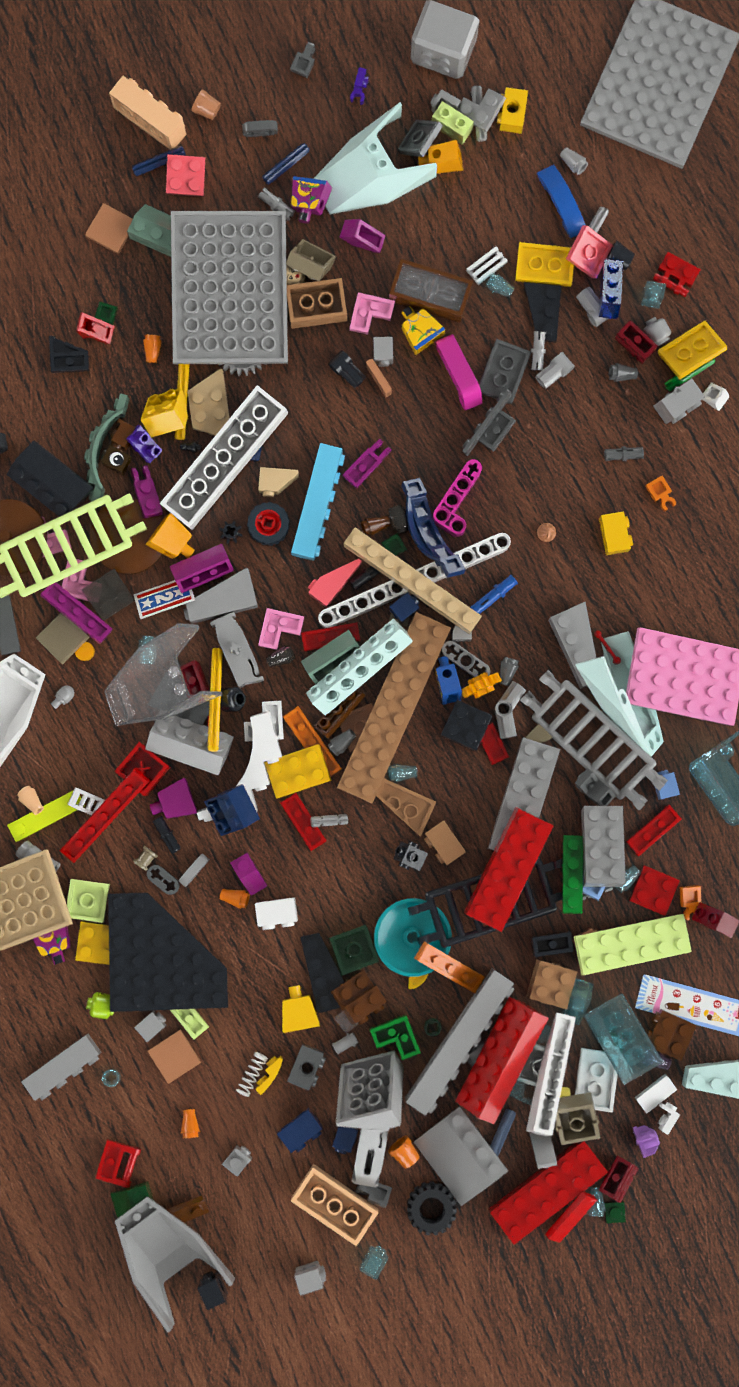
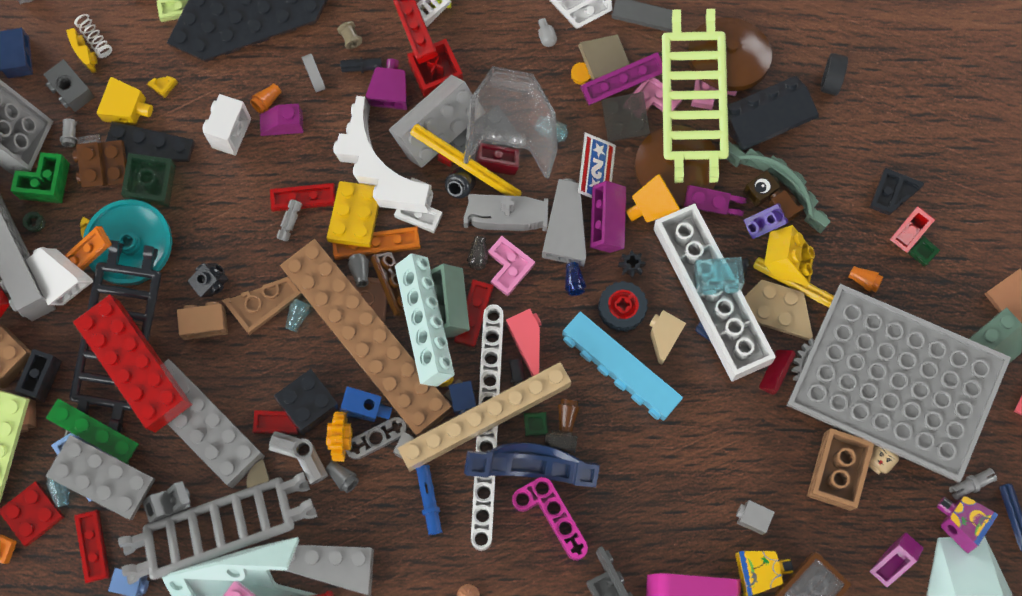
camera: 120 degrees right, 10 degrees down
(160, 883) = (321, 42): dark grey beam -> none
(214, 455) = (719, 275): none -> clear light blue brick
(232, 810) = (346, 126): dark blue slope -> none
(265, 571) = (574, 280): none -> clear blue cone
(265, 991) = (162, 85): none -> yellow tile
(268, 382) = (777, 371): none -> dark red slope
(310, 260) = (892, 486): dark tan piece -> none
(344, 366) = (757, 466): black piece -> none
(365, 465) = (637, 437): magenta hinge -> none
(368, 307) = (812, 525): bright pink plate -> none
(378, 378) = (726, 497): nougat tile -> none
(468, 973) = (57, 276): none -> white slope

